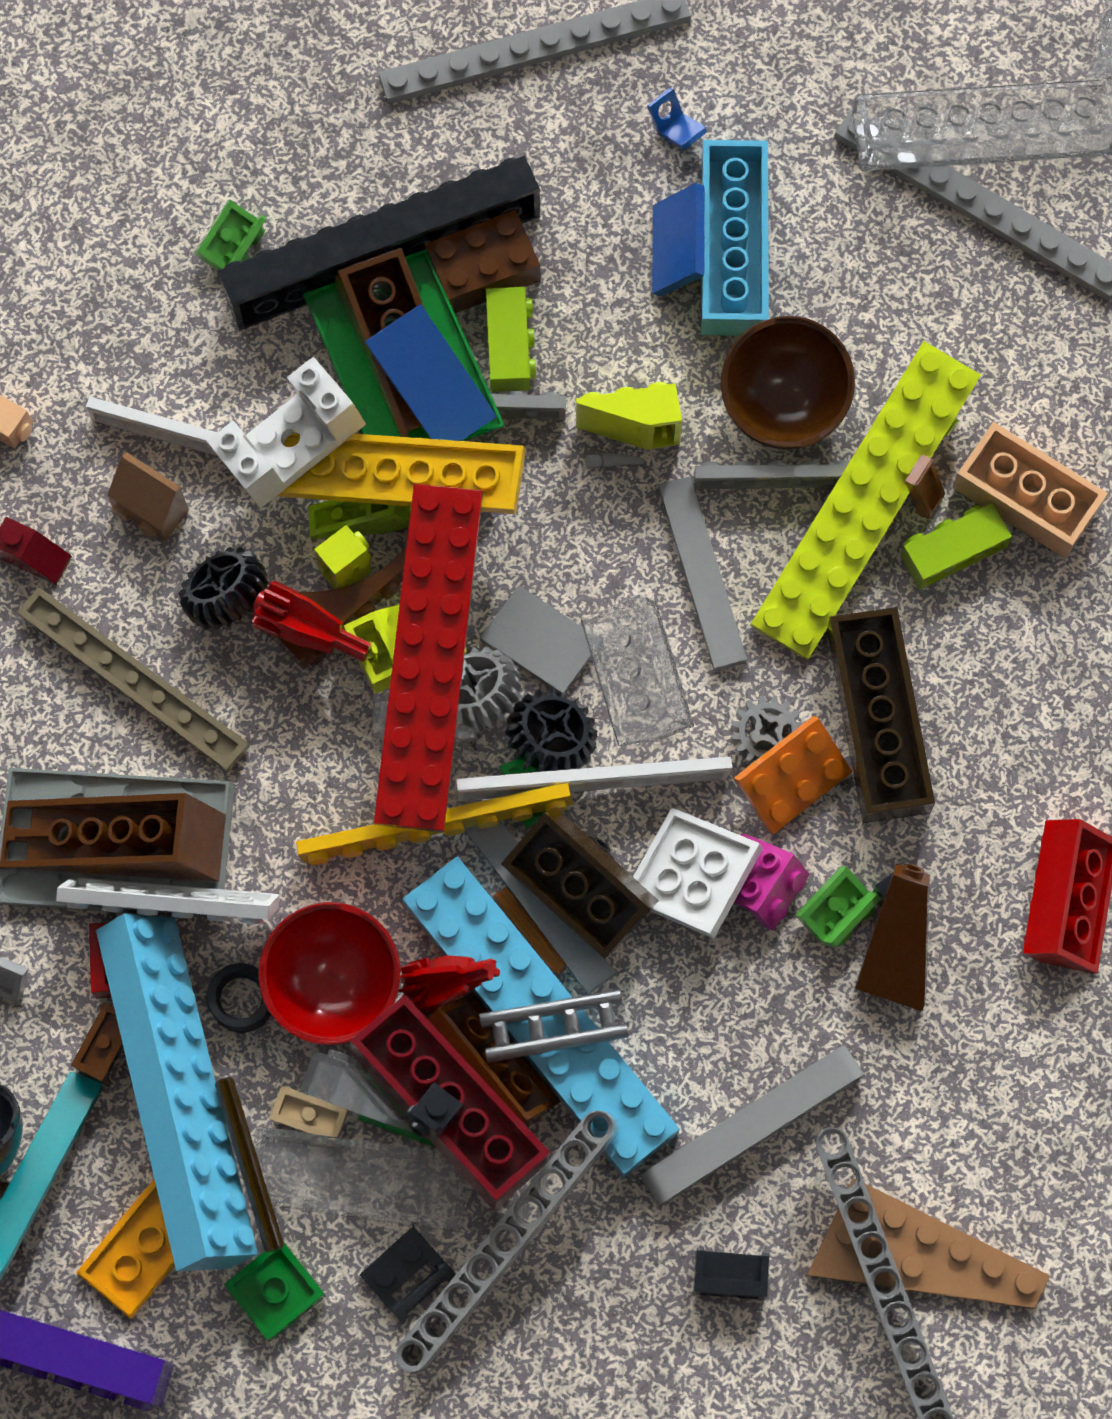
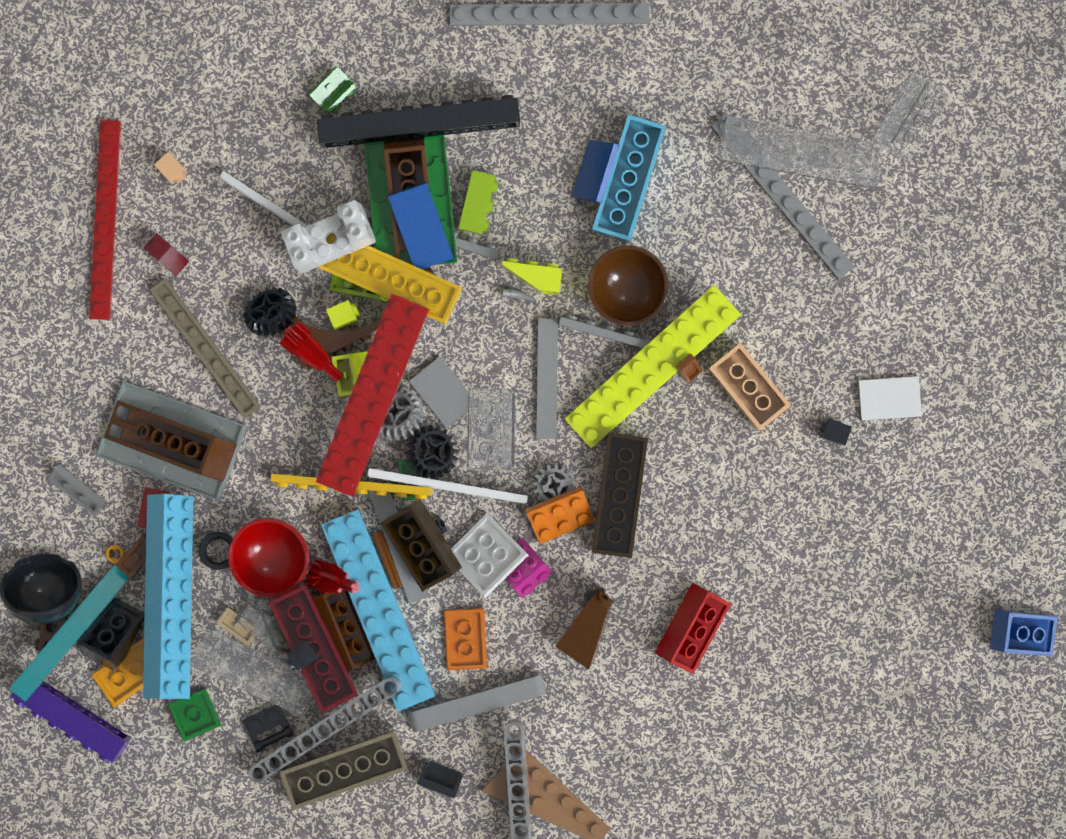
camera: 15 degrees right, 15 degrees up
(65, 1044) = (114, 547): none -> light orange bush
(94, 1190) = (111, 634): none -> black slope
(146, 498) = (240, 243): medium nougat slope -> none
(180, 900) = (192, 488): white plate -> none
(249, 1164) = (197, 649): dark brown axle -> none
(483, 258) = (476, 150): reddish brown brick -> none
(560, 1304) = (344, 769): none -> dark tan brick
(571, 1039) = (373, 612): flat silver bar -> none
(676, 126) = (618, 93): blue bracket -> none
(699, 1025) = (465, 639): none -> orange tile
(837, 908) = (561, 597): bright green bracket -> none
(955, 545) = (696, 405): lime brick -> none

